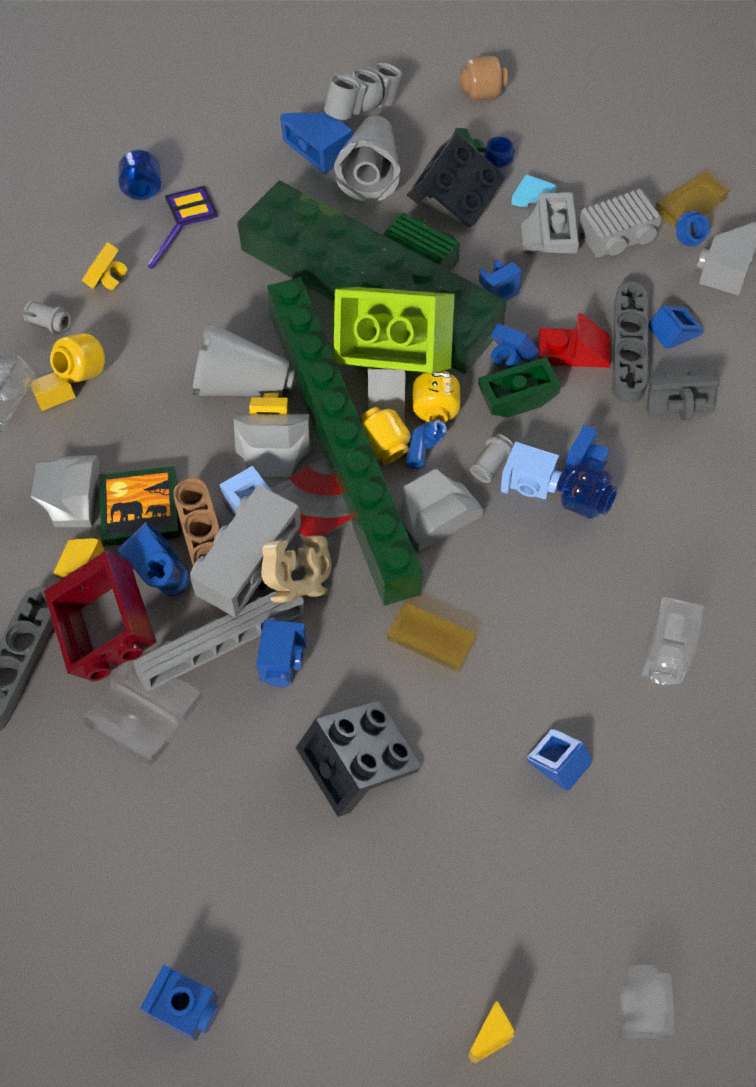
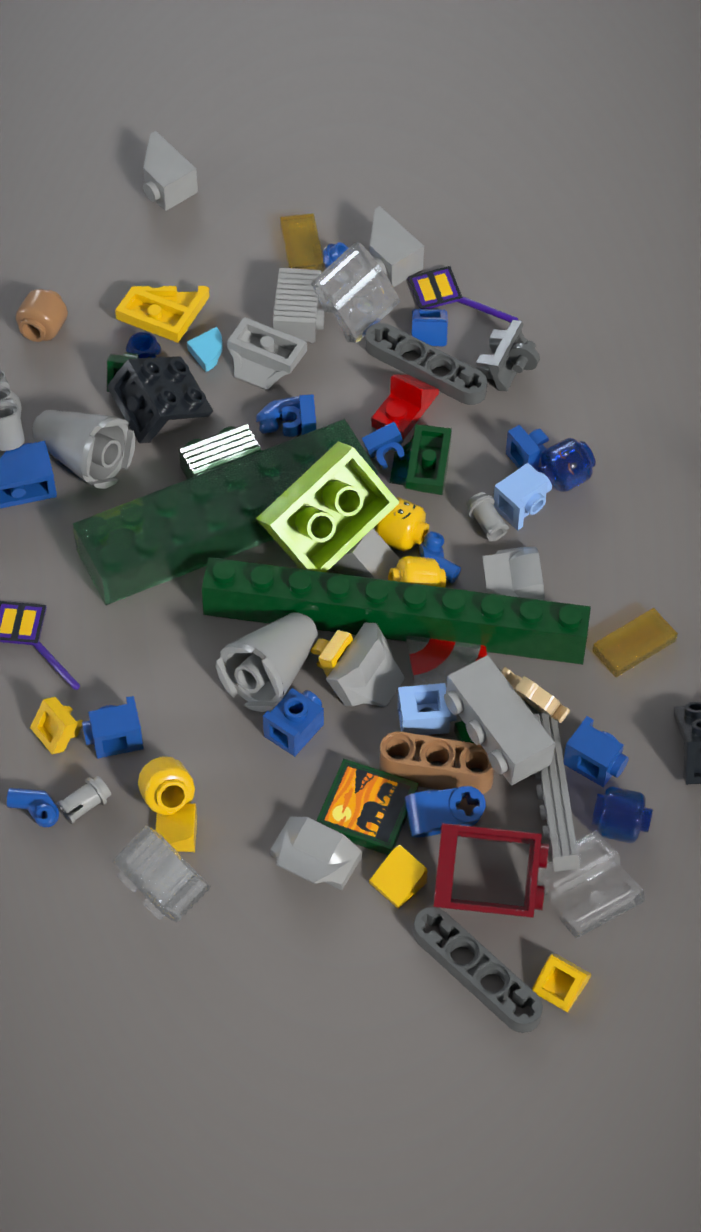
camera: 65 degrees left, 5 degrees down
(32, 289) = (36, 802): none -> blue arm
(36, 731) = (561, 982): none -> yellow slope
(119, 304) = (114, 729): none -> blue brick
(190, 415) = (294, 721): none -> blue brick
(226, 703) = (621, 814): none -> clear blue head
(487, 258) = (272, 411): none -> blue arm
(548, 145) = (162, 309): none -> yellow wing
(658, 250) = (355, 292): none -> clear slope
(685, 80) = (167, 174): none -> light grey slope
(724, 315) = (440, 288): none -> piece

